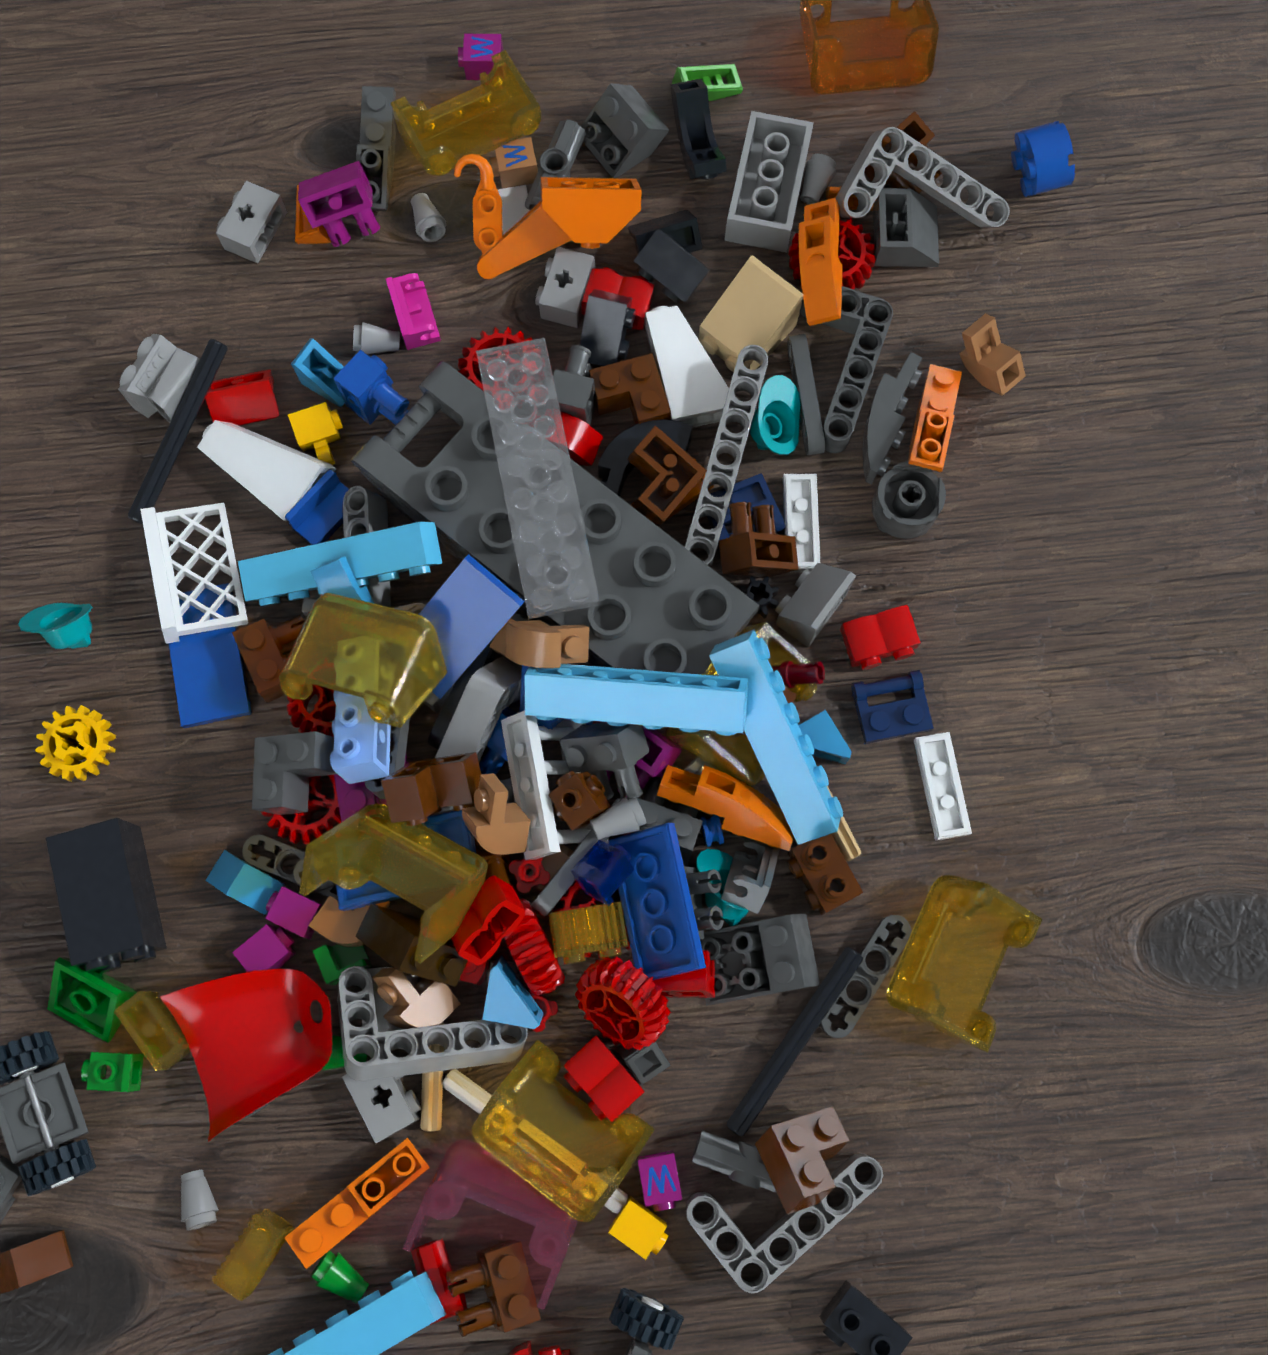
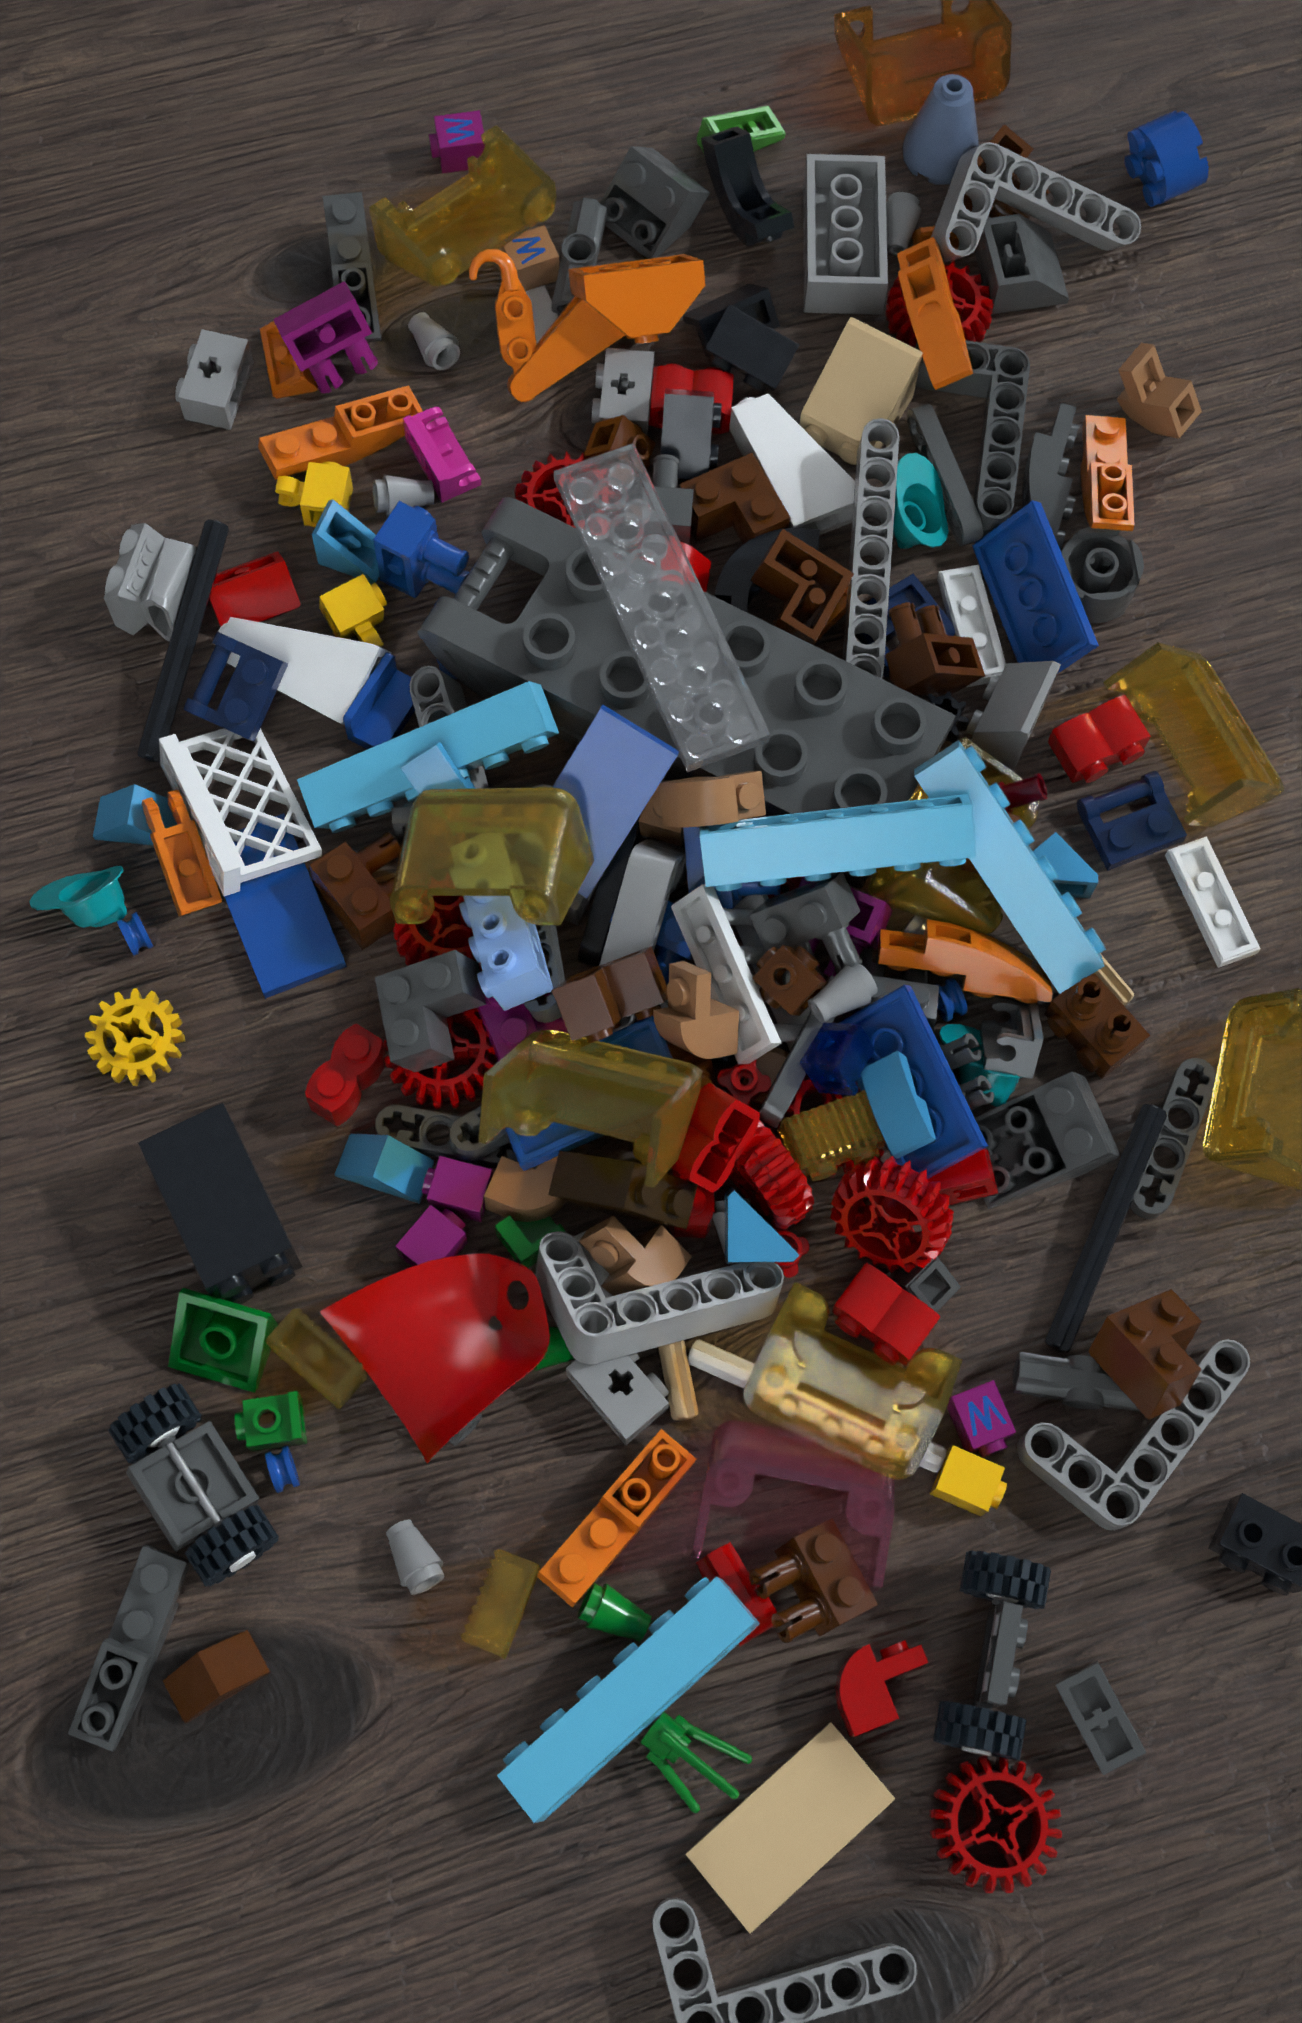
camera: 15 degrees left, 5 degrees down
(94, 660) = (135, 934): none -> blue bush
(112, 1110) = (282, 1469): none -> blue bush
(118, 567) = (123, 819): none -> dark azure slope
(140, 607) = (182, 857): none -> orange hinge
(217, 482) = (247, 693): none -> dark blue plate
(222, 811) = (338, 1083): none -> red brick
(313, 322) = (322, 483): none -> yellow brick
(332, 288) = (348, 436): none -> orange slope
(553, 326) = (617, 433): none -> reddish brown brick
(639, 921) = (896, 1106): none -> dark azure slope
(854, 506) = (1034, 590): none -> blue tile
(866, 107) = (942, 130): none -> sand blue cone
(966, 645) = (1202, 732): none -> clear yellow windscreen

